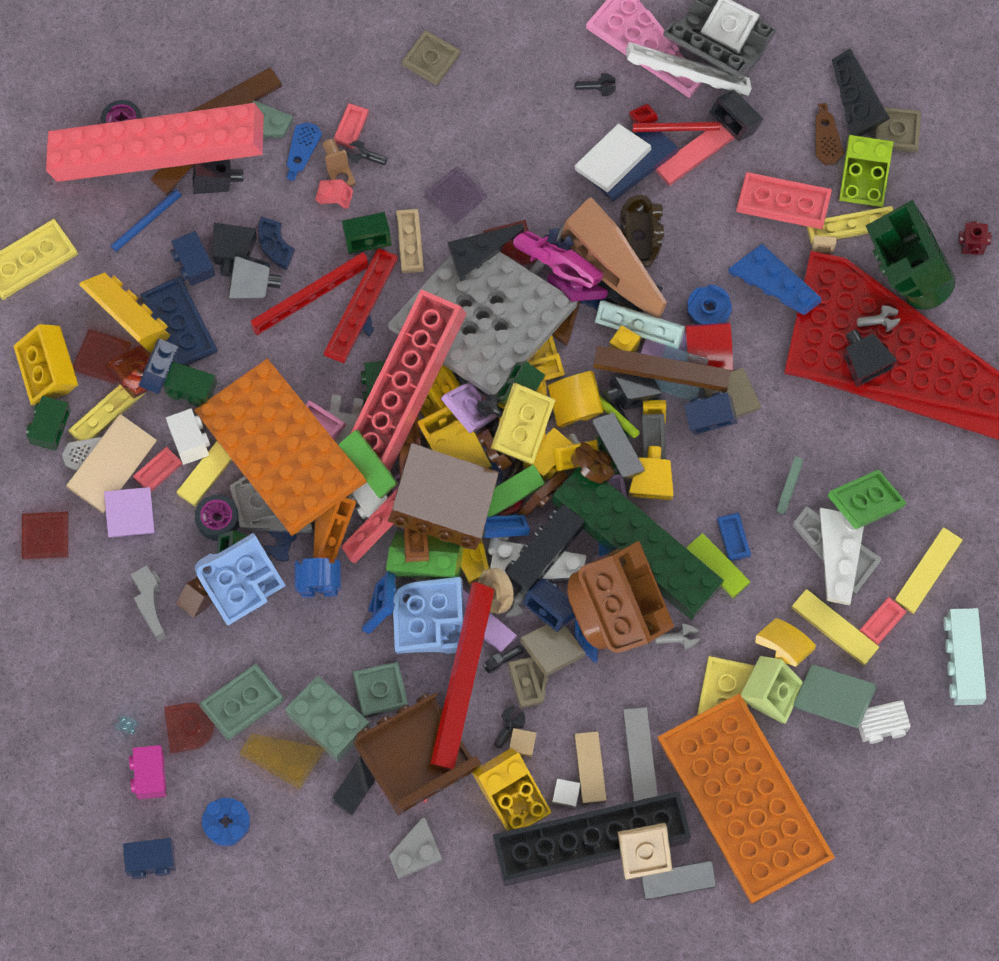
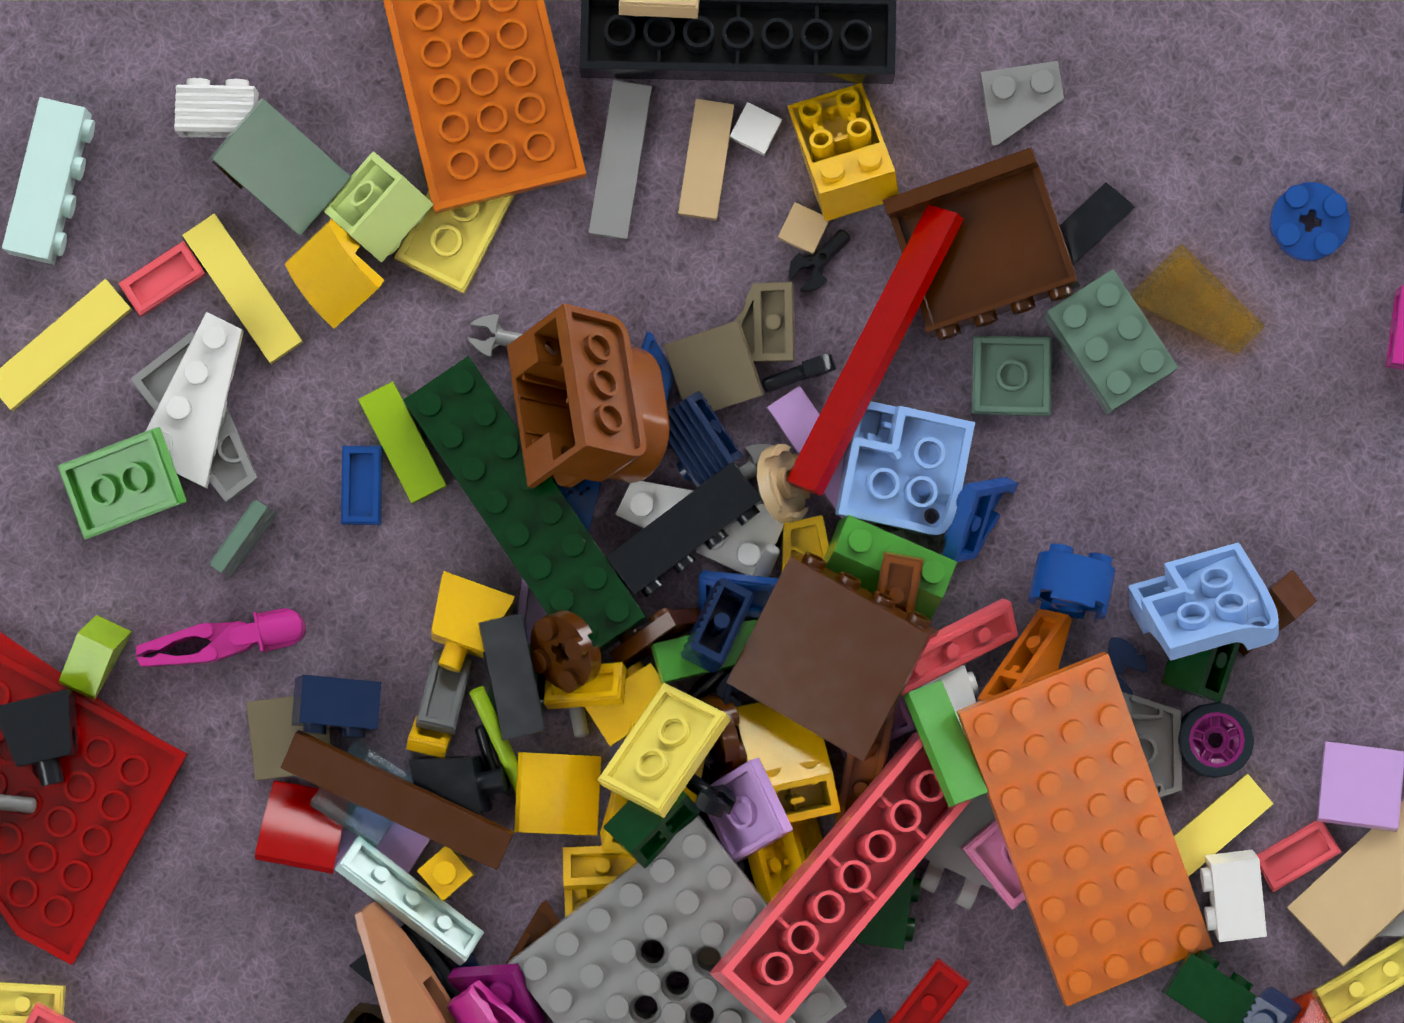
camera: 160 degrees left, 15 degrees up
(147, 584) = (1357, 648): light grey slope -> none
(187, 727) = (1337, 394): clear red tile -> none
(241, 702) = (1242, 409): sand green tile -> none
(511, 498) = (717, 625): none -> dark blue brick
(707, 295) = (256, 905): blue plate -> none
(775, 279) = (153, 932): blue wing -> none
(783, 434) = (270, 630): none -> dark pink arm
(824, 244) = (45, 971): tan tile -> none
(851, 408) = (94, 656): none -> lime slope

